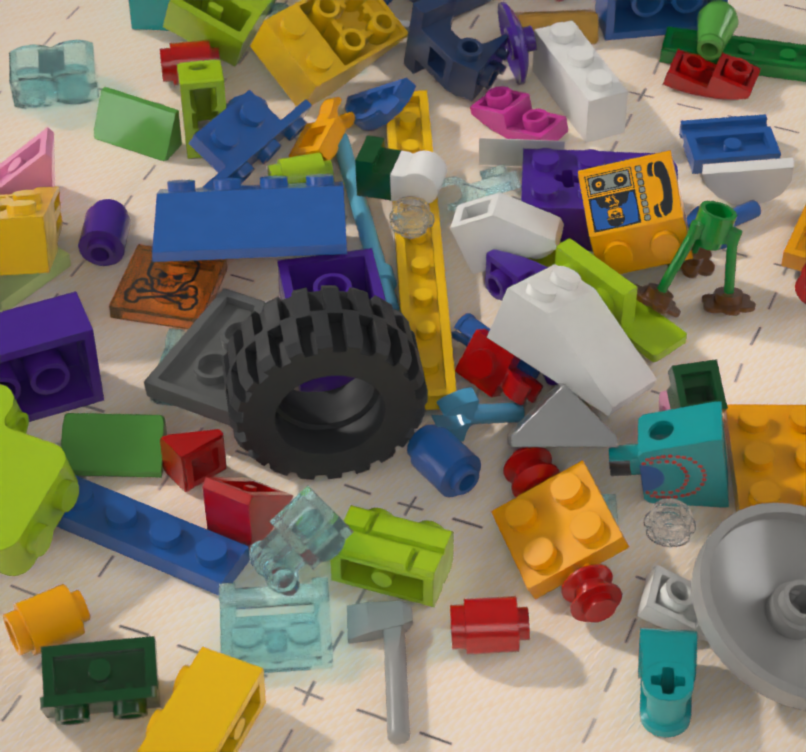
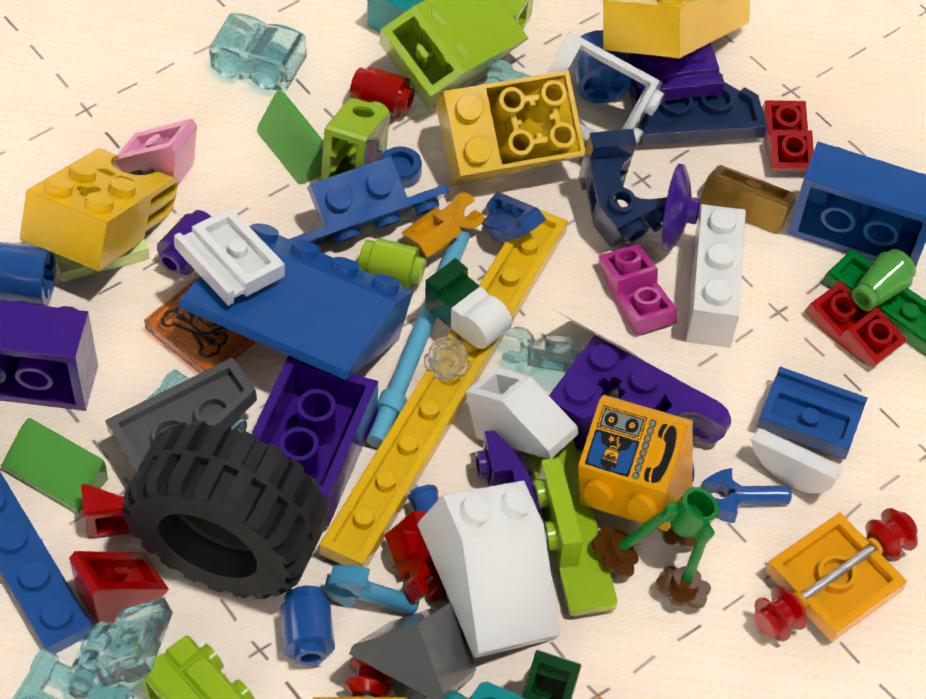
camera: 25 degrees right, 10 degrees up
(175, 200) = (229, 256): none -> white plate

